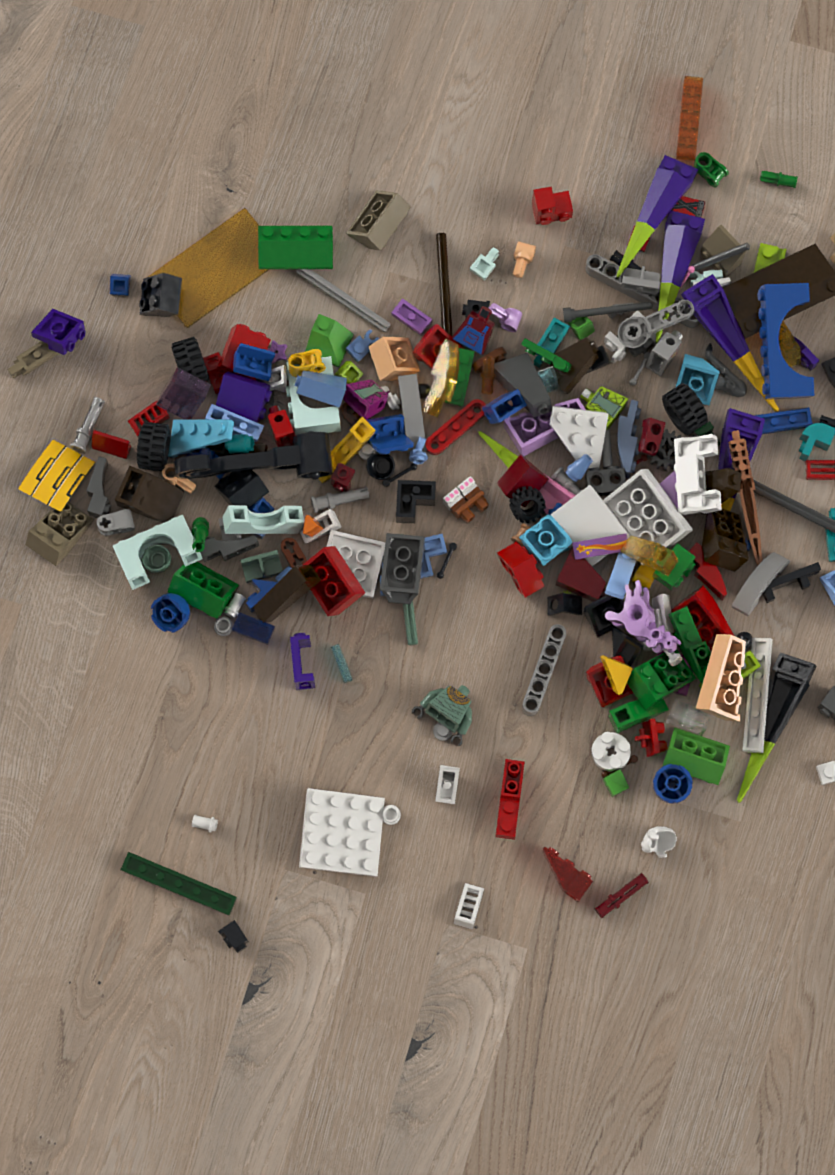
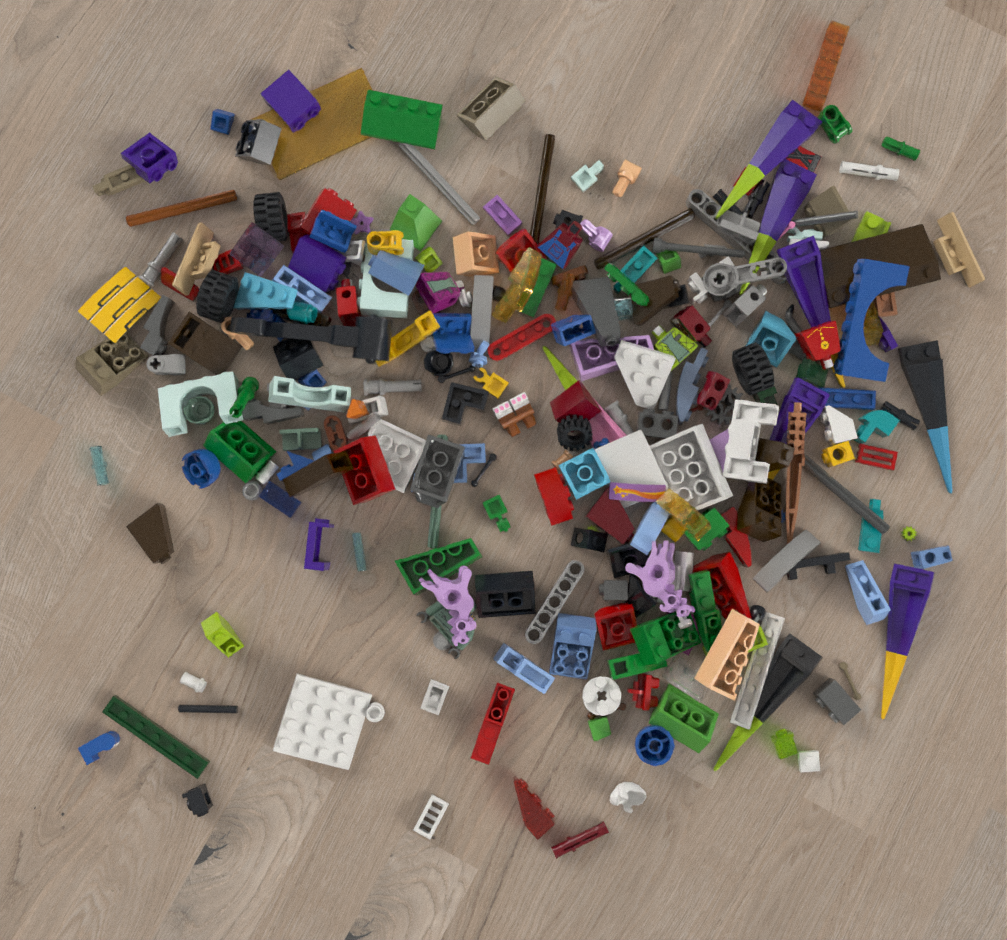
camera: 10 degrees right, 10 degrees up
(68, 633) = (99, 465): none -> clear light blue pin
(97, 373) = (181, 208): none -> dark orange axle
(119, 906) = (103, 742): none -> blue leg
(127, 416) = (197, 259): none -> tan bracket
(134, 687) = (153, 534): none -> dark brown slope
(185, 251) = (291, 101): none -> dark purple panel
(224, 770) = (221, 634): none -> lime slope
(224, 847) = (208, 709): none -> black bar
(321, 541) = (363, 426): none -> light grey piece
(342, 477) = (398, 366): dark red bracket -> none
(360, 347) = (444, 235): medium blue plate -> none
(422, 657) = (442, 561): none -> green wedge
(439, 474) = (493, 383): none -> yellow plate
(446, 676) = (454, 596): none -> lavender animal
(466, 594) = (496, 508): none -> green plate
(494, 673) = (505, 594): none -> black slope
(528, 740) = (523, 668): none -> light blue slope
(551, 206) = (666, 130): red brick -> none
(553, 311) = (644, 238): none -> dark brown axle
(571, 709) = (572, 646): none -> medium blue slope
(579, 467) = (632, 407): medium blue cone -> none
(599, 646) = (614, 590): none -> dark grey brick
(617, 673) = (625, 623): yellow slope -> none
(618, 381) = (688, 321): none -> dark red torso
(652, 252) = (756, 198): none -> black pin
(743, 372) = (820, 343): none -> red torso
(744, 402) = (812, 373): none -> clear green slope
(754, 205) = (869, 171): none -> white pin
(780, 446) = (837, 425): none -> white slope
(791, 468) = (844, 450): none -> yellow brick
(799, 325) = (886, 305): none -> nougat plate
(800, 760) = (784, 743): none -> clear neon green bracket

